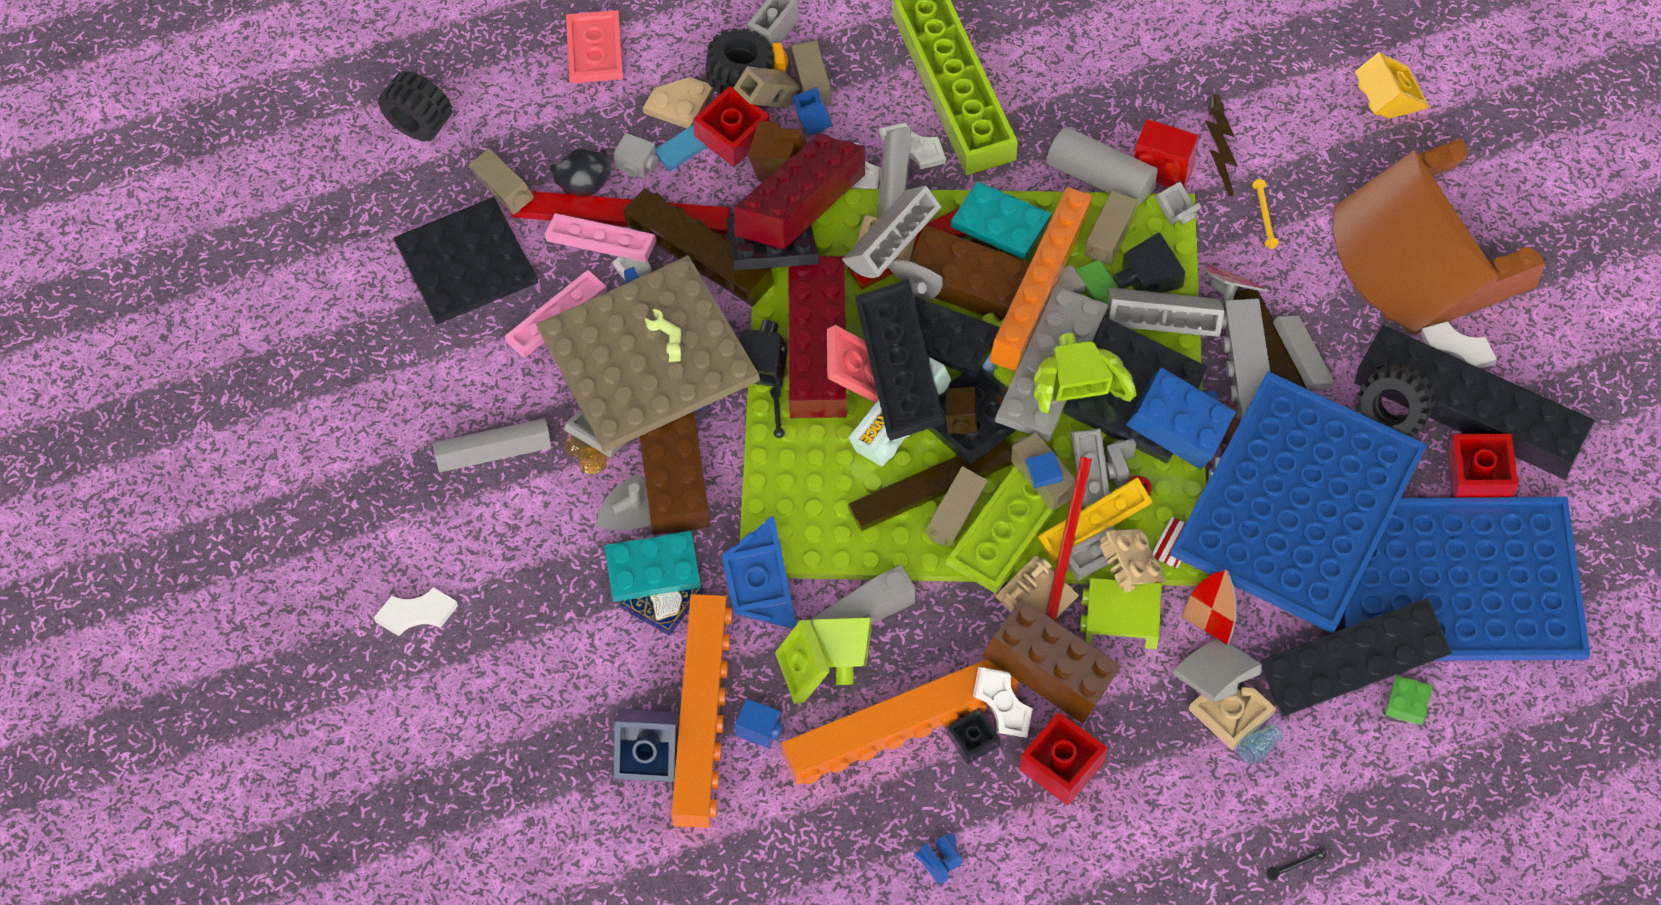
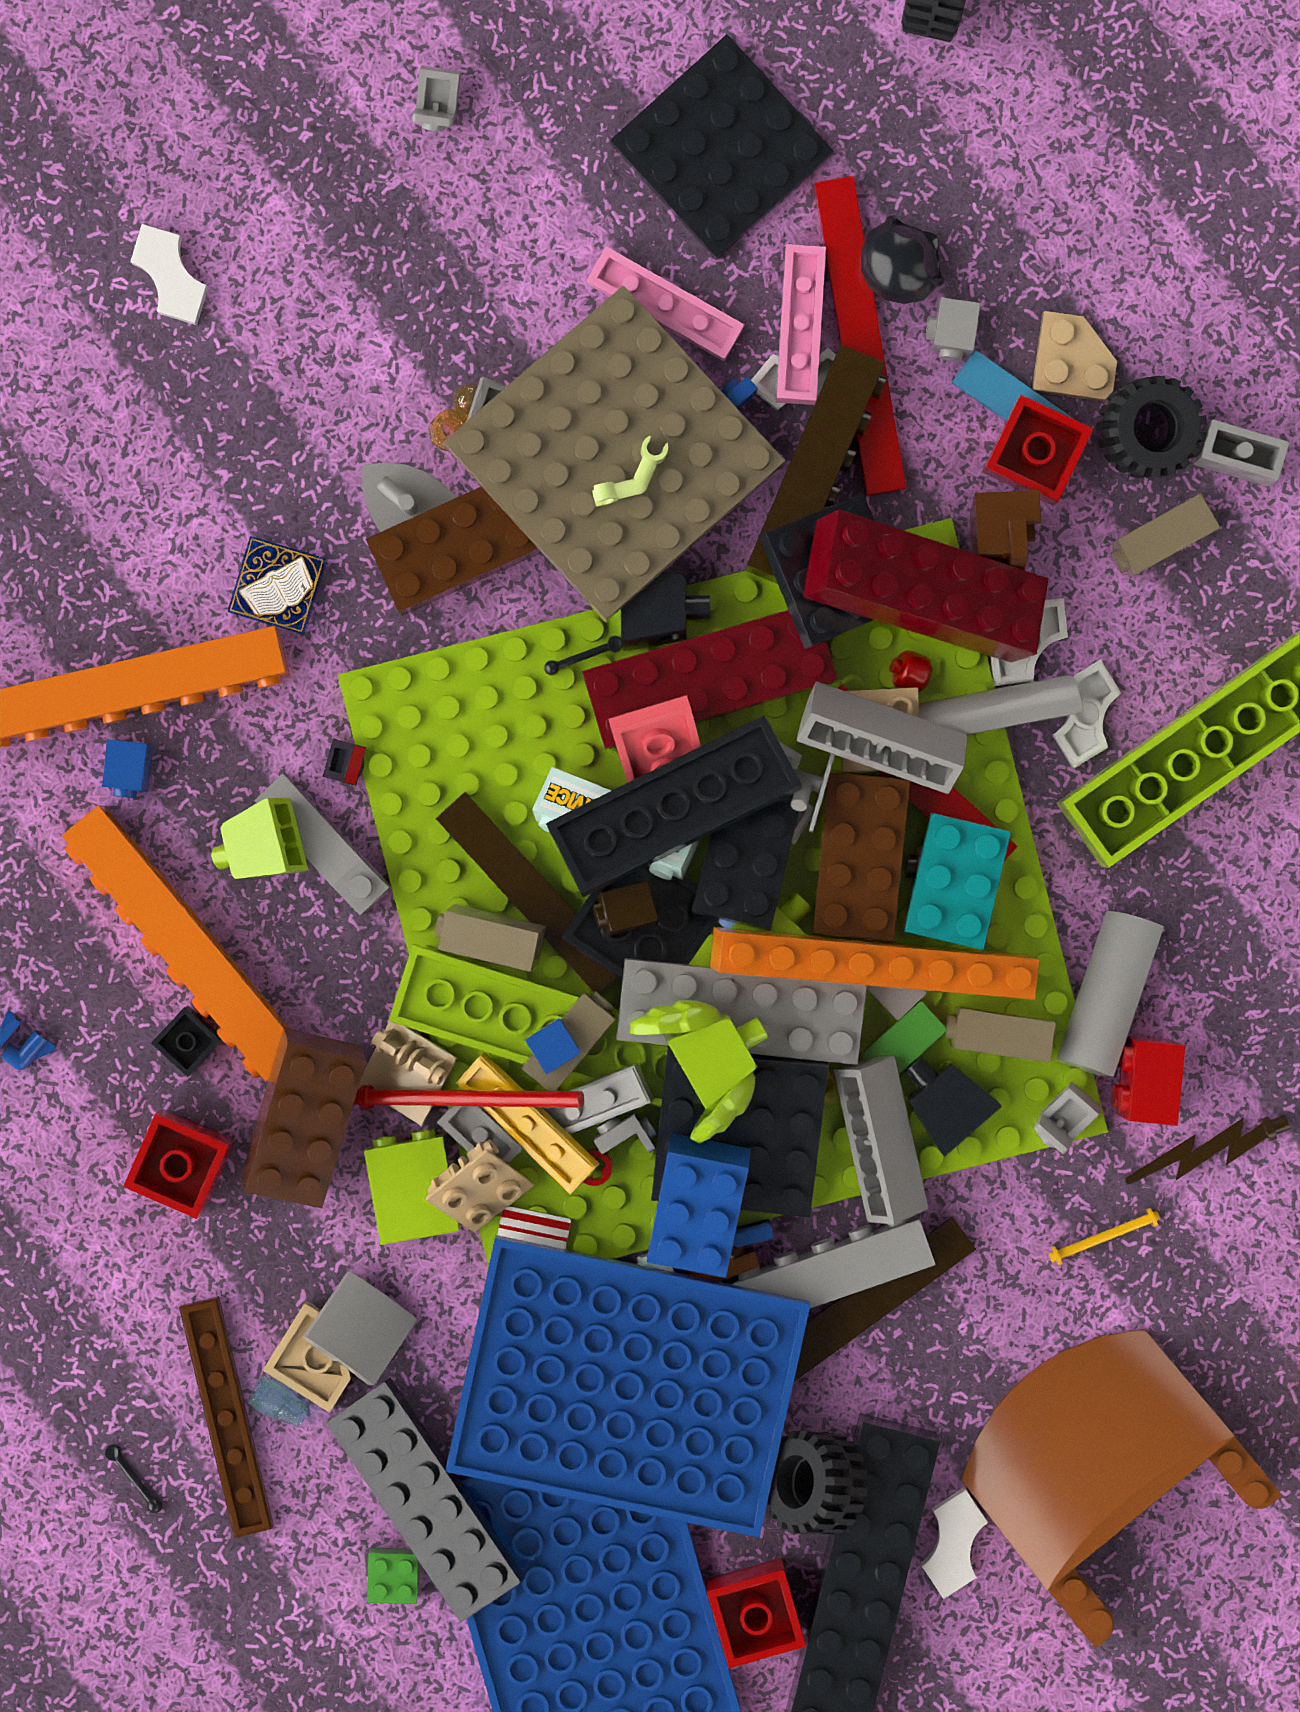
camera: 70 degrees right, 30 degrees up
(364, 412) = (437, 98): none -> light grey bracket
(491, 445) = (438, 285): light grey brick -> none
(501, 181) = (852, 153): dark tan brick -> none
(594, 46) = (1133, 205): coral plate -> none
(645, 745) = (61, 632): dark blue slope -> none
(652, 566) = (310, 561): teal plate -> none
(759, 578) = (328, 706): blue wing -> none
(766, 87) = (1111, 481): dark tan brick -> none
(780, 58) = (1177, 483): light orange tile -> none
(802, 661) = (218, 799): lime plate -> none
(803, 581) = (344, 762): none -> black plate
(812, 111) = (1094, 558): blue brick -> none
(850, 227) = (911, 670): none -> red piece
(1010, 714) = (239, 1058): white tile -> none
(1213, 606) = (445, 1306): shield -> none
(1228, 282) = (967, 1215): shield -> none
(1263, 786) = (226, 1416): none -> reddish brown tile
(1303, 352) = (883, 1337): light grey tile -> none

